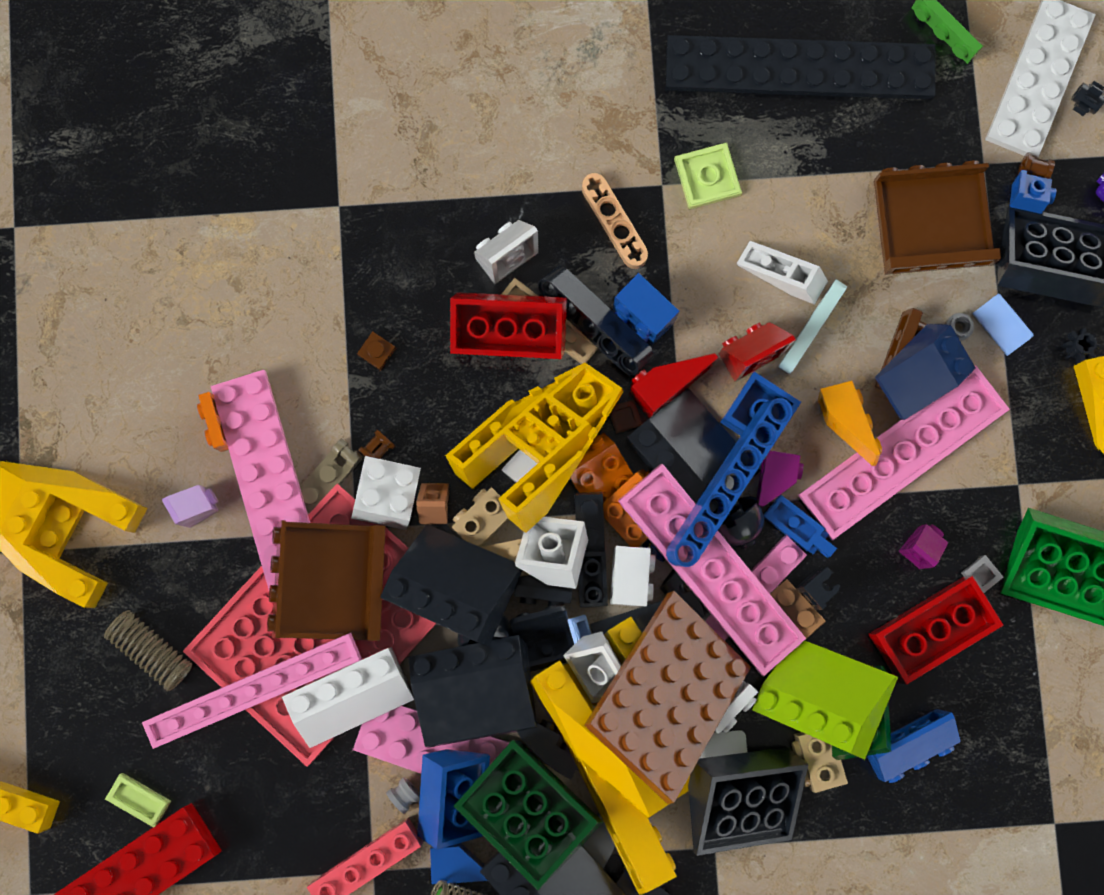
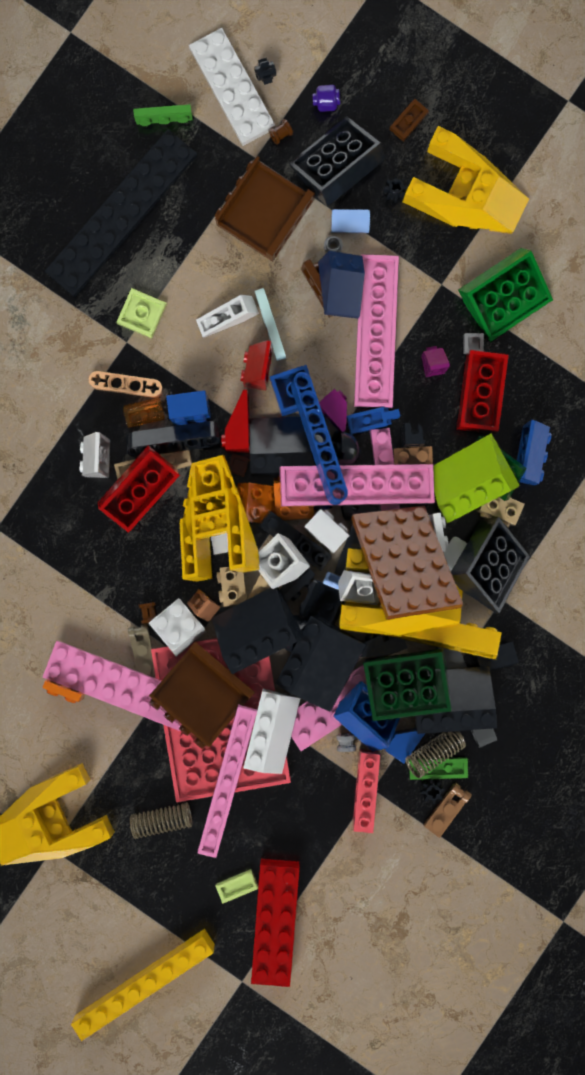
camera: 50 degrees left, 5 degrees up
(191, 505) = (100, 737): lavender slope -> none
(376, 351) = (94, 571): reddish brown plate -> none
(599, 265) = (144, 412): none -> clear orange slope
(845, 416) = (333, 347): light orange slope -> none
(1031, 193) = (292, 145): blue brick -> none

